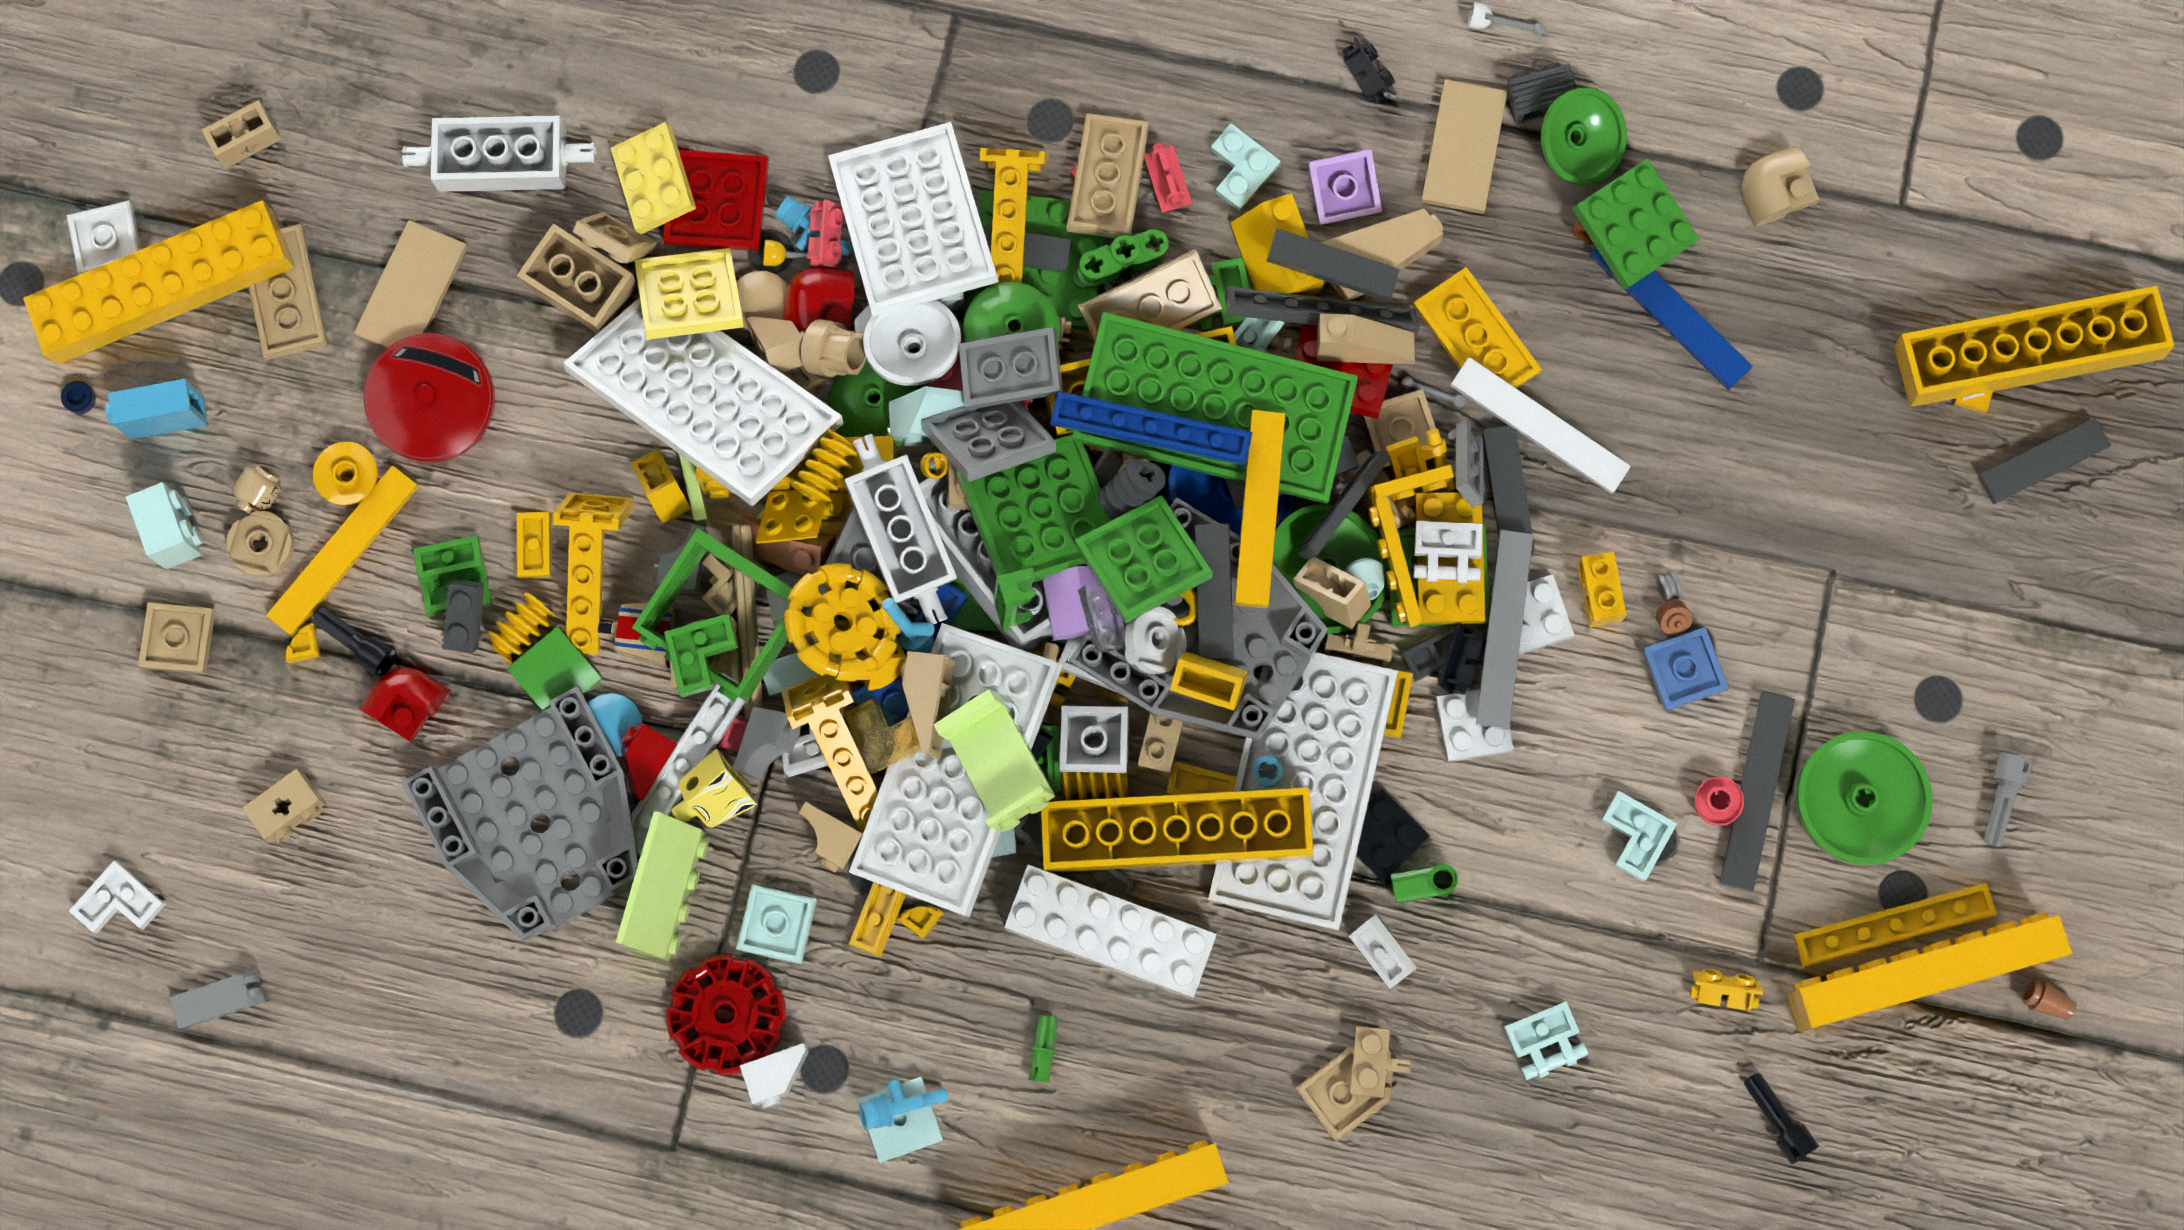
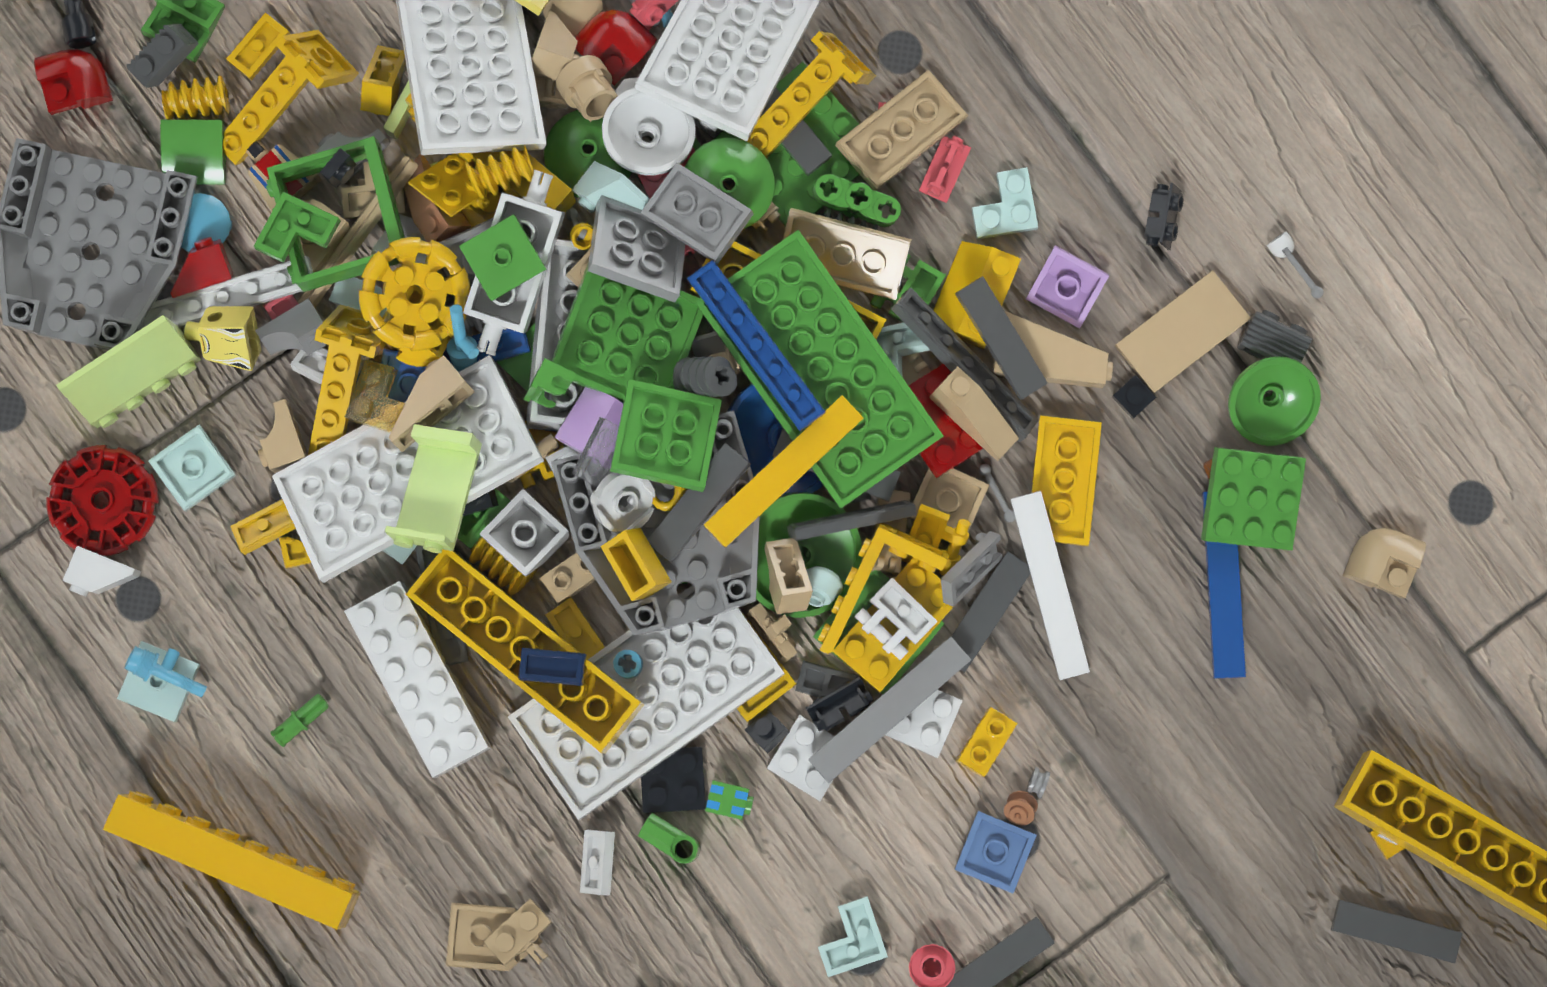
camera: 35 degrees right, 5 degrees up
(693, 576) = (339, 168): none -> black plate
(890, 529) = (502, 257): none -> bright green plate
(1214, 820) = (552, 666): none -> dark blue tile
(1422, 731) = (767, 730): none -> black plate
(1442, 811) = (729, 800): none -> bright green brick
(1471, 228) = (1134, 397): none -> black plate

